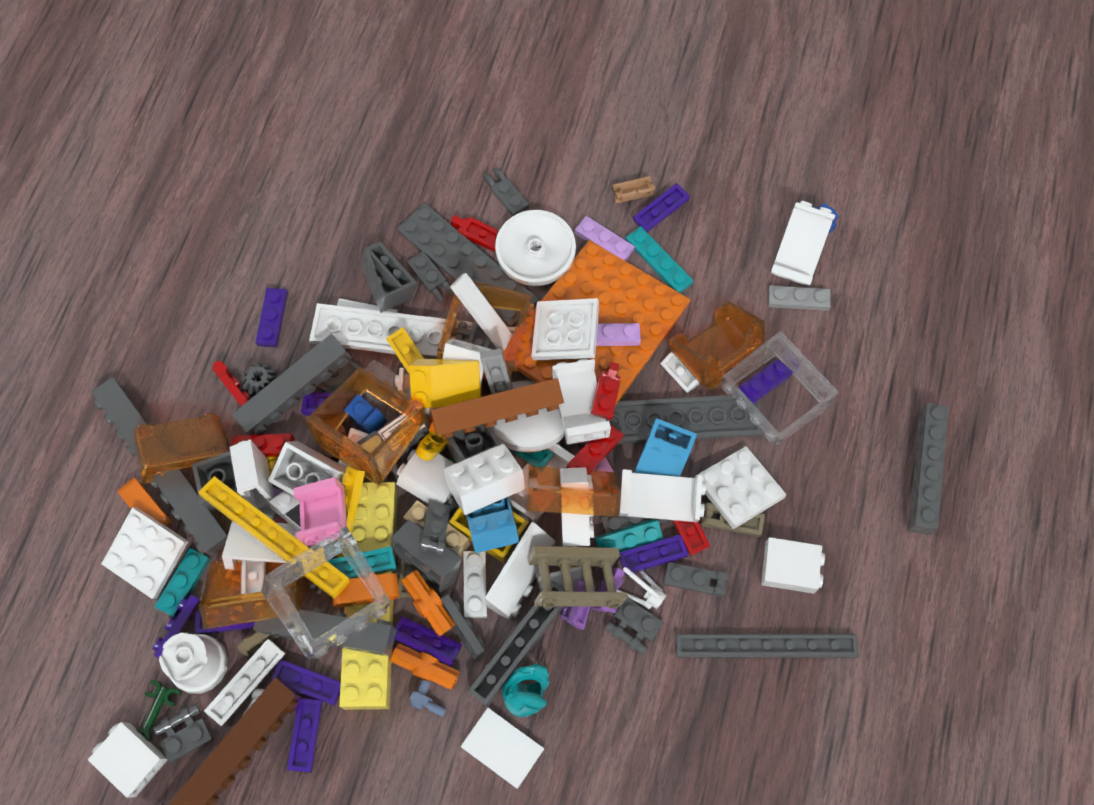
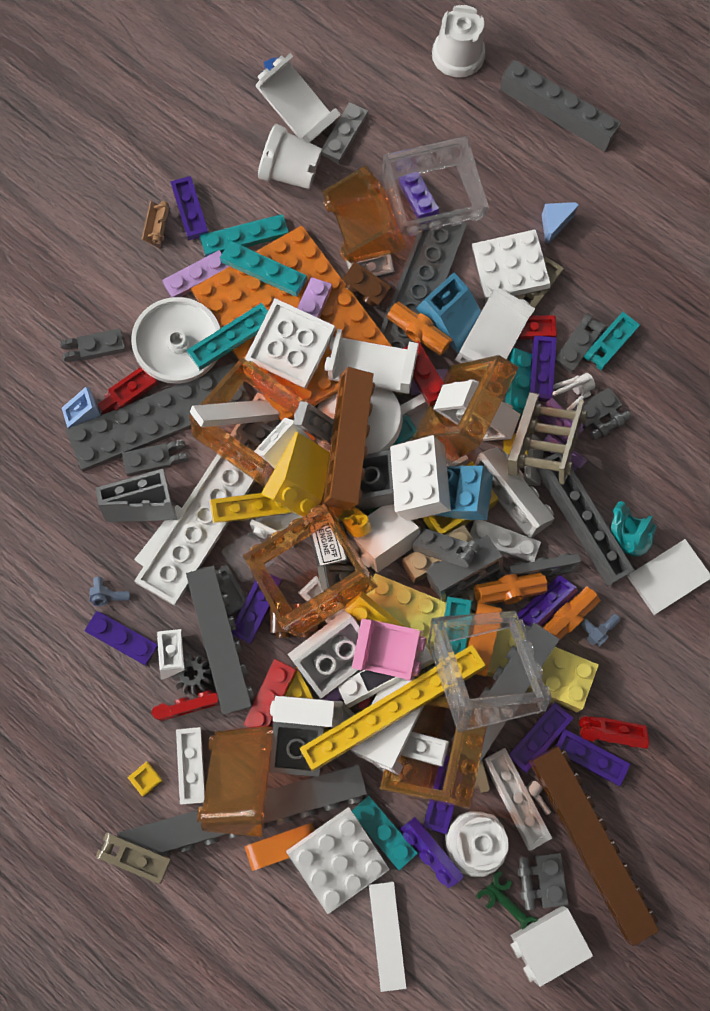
camera: 70 degrees left, 5 degrees up
(94, 395) = (134, 858): none -> dark tan plate
(98, 619) = (387, 936): none -> white tile
(166, 382) = (145, 779): none -> yellow tile
(190, 407) = (190, 765): none -> white plate
(268, 354) = (170, 653): none -> white slope
(299, 286) = (100, 595): none -> sand blue piece
(335, 747) = (614, 731): none -> red hinge
(365, 416) = (290, 576): blue brick -> none
(447, 206) = (81, 408): none -> light blue slope
(550, 281) = (227, 337): none -> teal plate
(606, 392) = (372, 335): red hinge -> none
(631, 285) = (263, 268): none -> teal plate
(635, 430) = (419, 328): none -> orange piece
(657, 372) = (363, 281): none -> reddish brown brick
(712, 608) = (612, 340): none -> teal plate
(741, 260) = (289, 159): none -> white piece
(766, 646) = (661, 313): dark grey tile -> none
(792, 565) = (601, 256): white brick -> none
(809, 510) = (556, 217): none -> light blue slope
(939, 355) = (460, 44): none -> white piece

